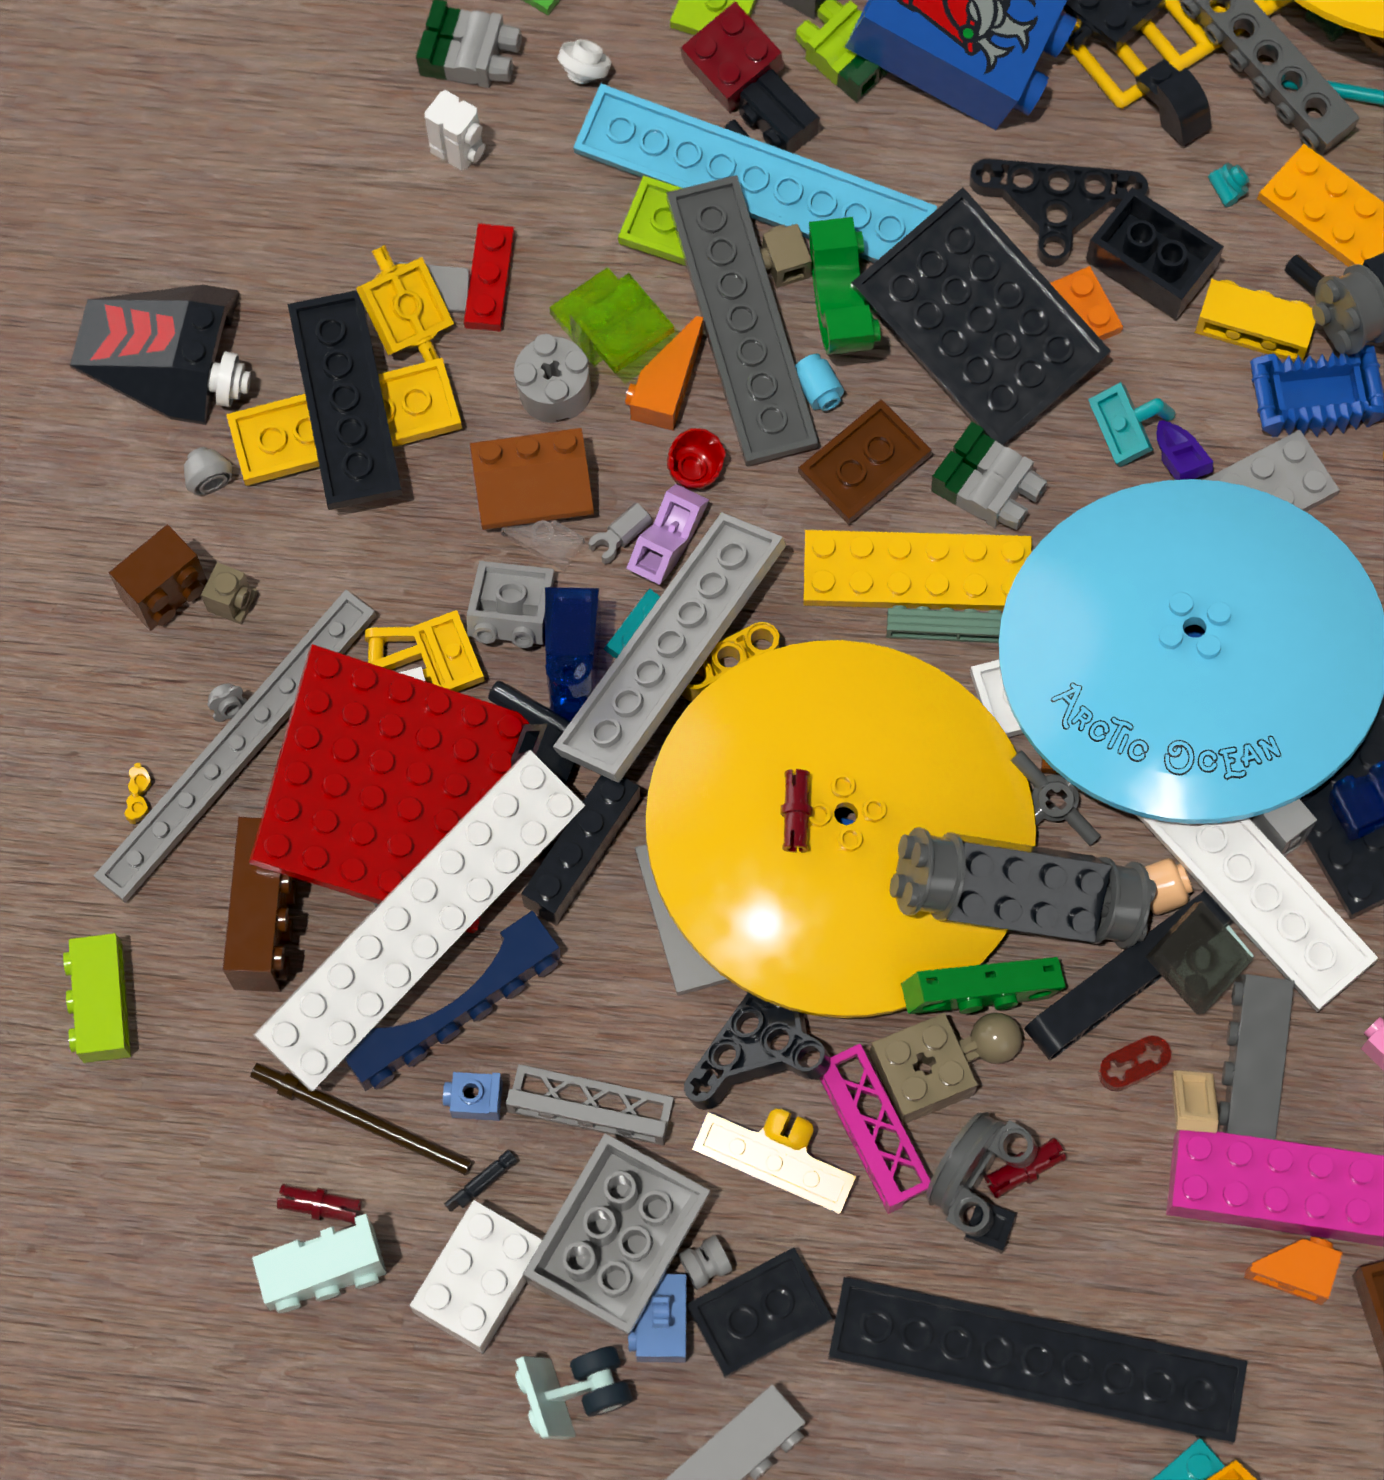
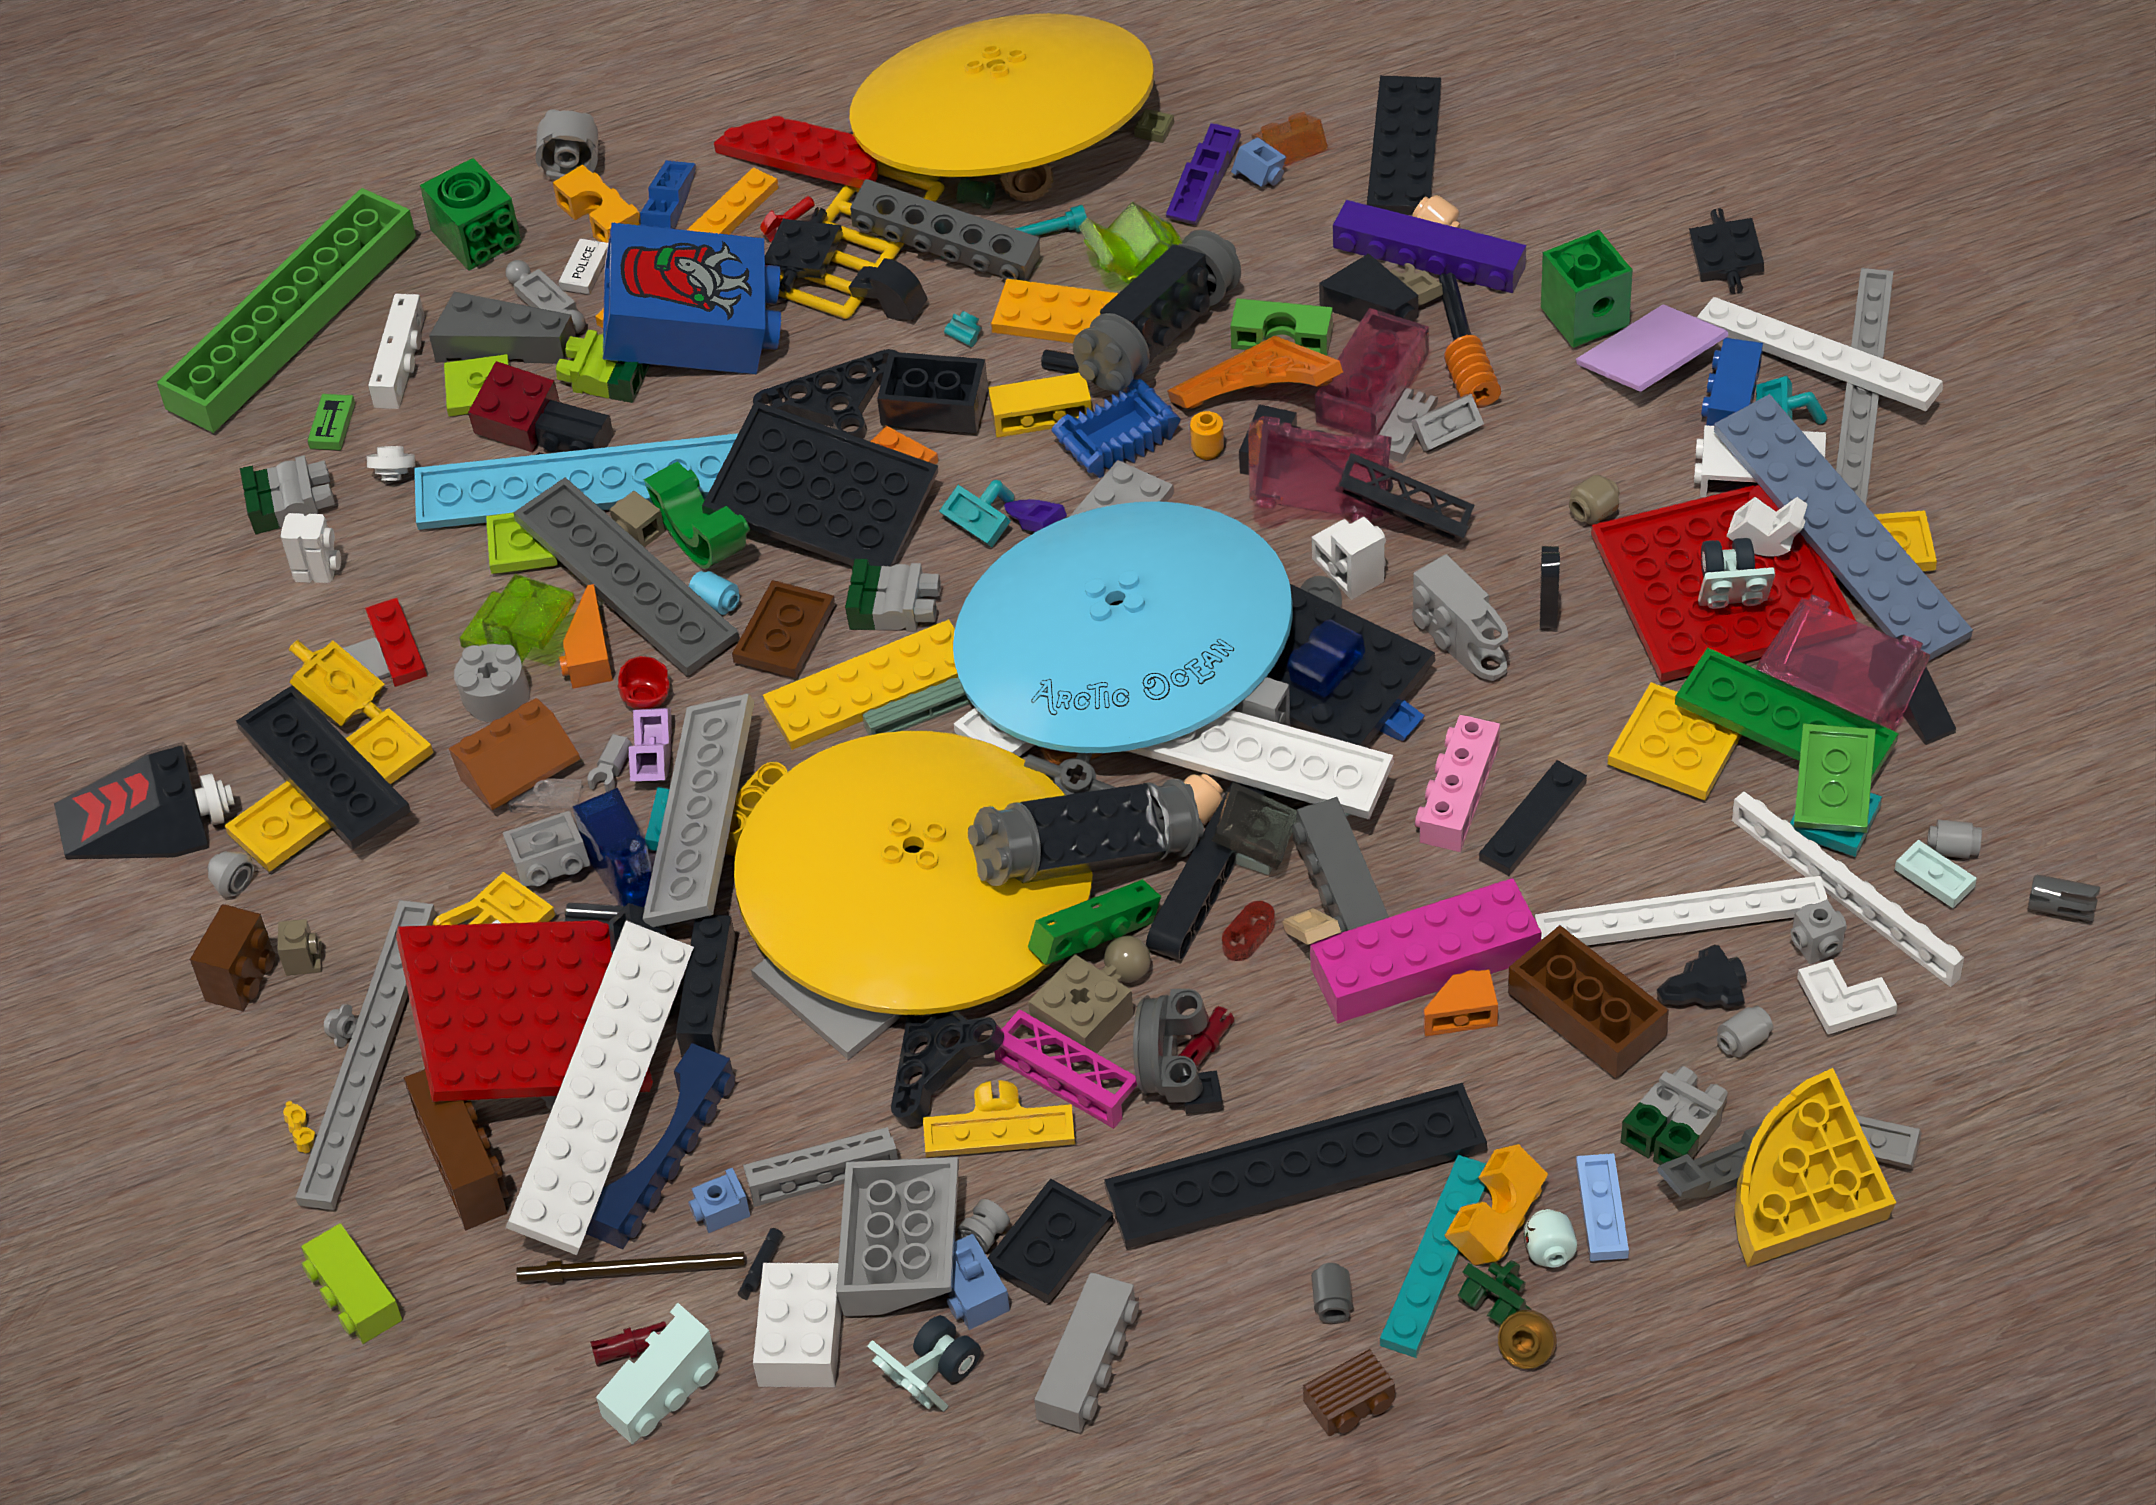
camera: 25 degrees left, 20 degrees down
(796, 811) = (872, 855): dark red pin -> none

